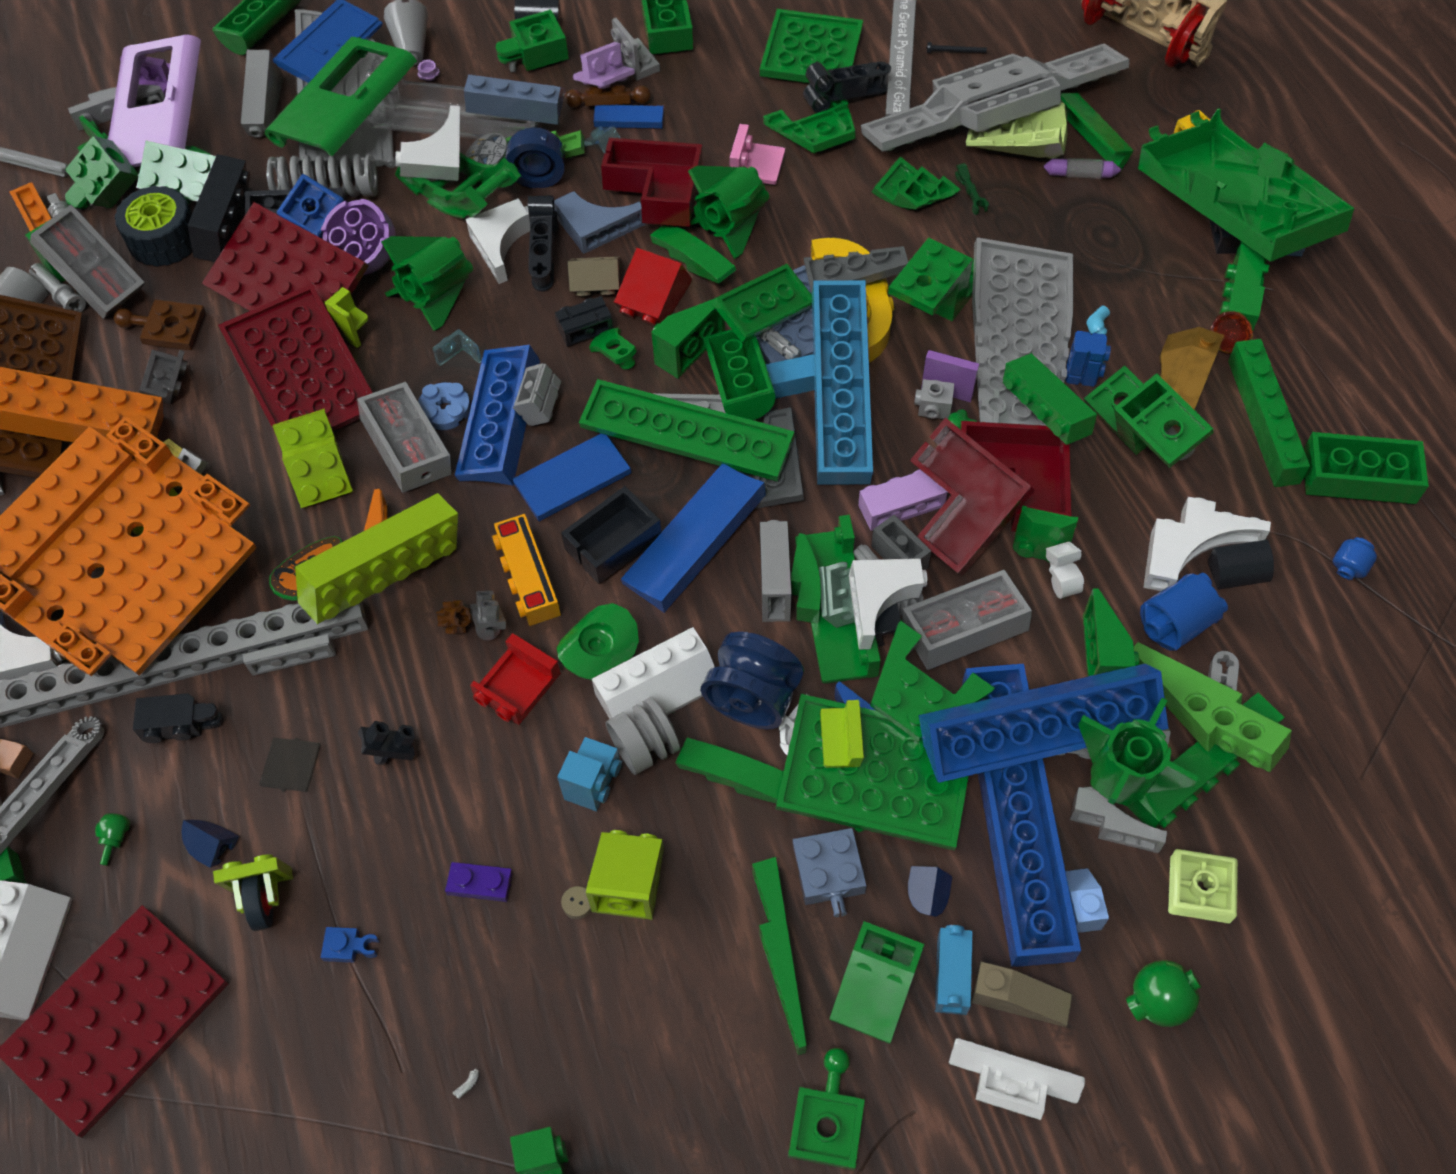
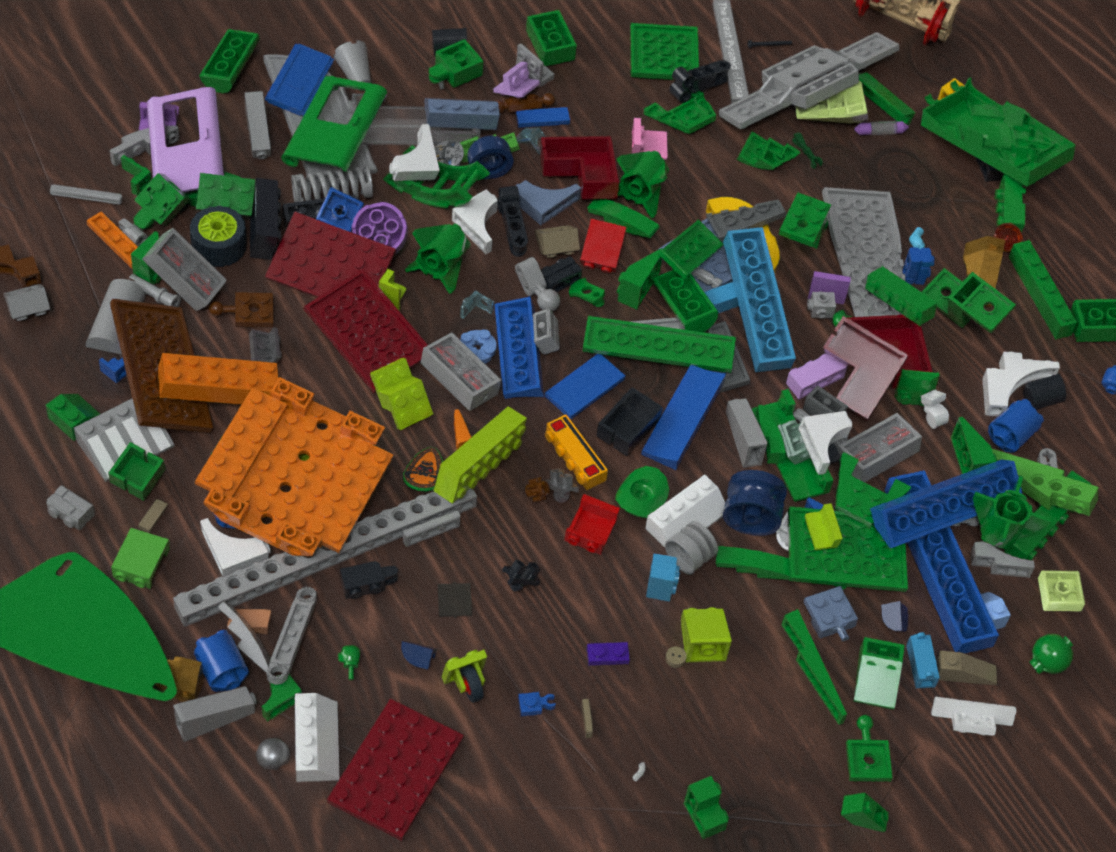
camera: 20 degrees left, 5 degrees down
(414, 982) = (587, 718): none -> dark tan piece
(545, 329) = (534, 283): none -> light grey beam

